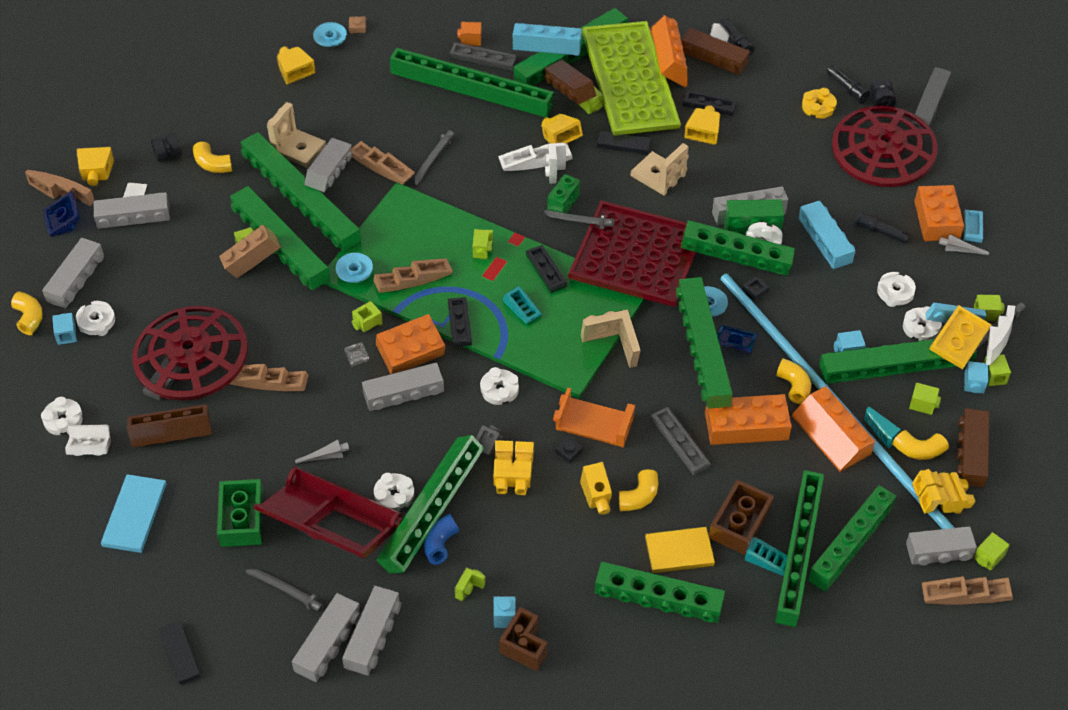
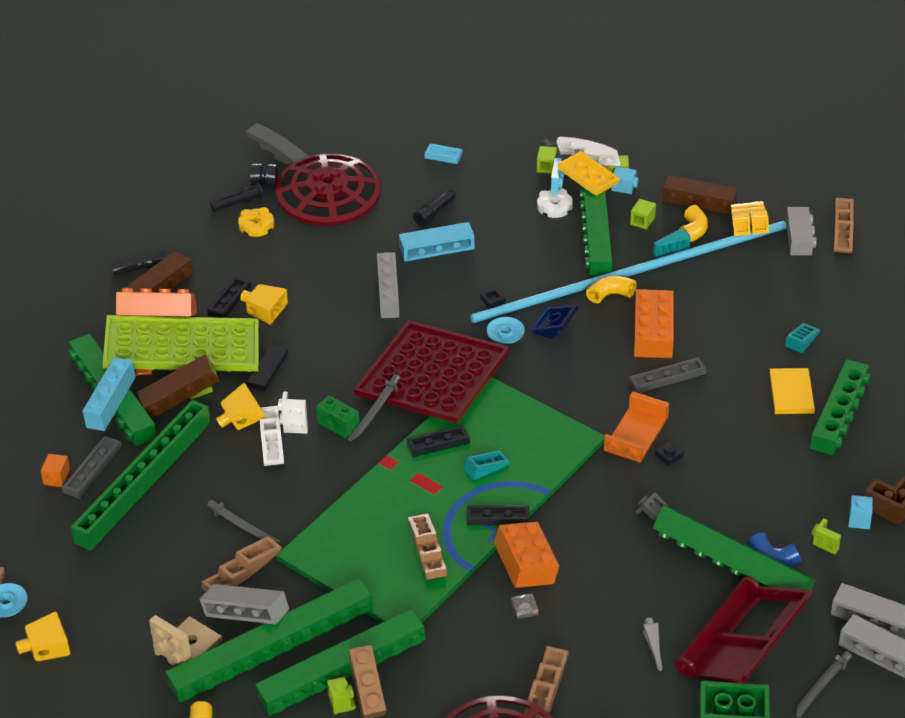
camera: 80 degrees left, 10 degrees down
(354, 267) = (407, 593): medium azure dish -> none
(366, 317) = (478, 595): lime brick -> none
(394, 482) = (703, 579): white plate -> none
(403, 386) = (578, 569): light grey brick -> none
(482, 243) = (397, 484): lime brick -> none
(499, 377) = (580, 487): white plate -> none
(513, 474) = (692, 491): yellow hips -> none
(596, 487) = (724, 431): yellow torso -> none
(613, 324) = (542, 389): tan bracket -> none
(642, 495) = (732, 404): yellow cylinder -> none
(669, 169) = (329, 338): tan bracket -> none
(704, 343) = (572, 326): green brick -> none
(718, 32) = (123, 278): white sticker -> none
(737, 248) = (446, 298): green brick -> none
(741, 517) = (765, 340): reddish brown brick -> none
(743, 213) = (414, 281): green brick -> none
(770, 234) = (437, 277): white plate -> none
(799, 549) = (800, 309): green brick -> none
(833, 429) = (671, 270): orange slope -> none
(849, 341) = (575, 248): medium azure brick -> none
(851, 538) = (790, 279): green brick -> none
(894, 297) = (519, 214): white plate -> none
(938, 212) = (428, 167): orange brick -> none
(958, 245) = (466, 165): light grey piece -> none
(991, 551) = (808, 199): lime brick -> none

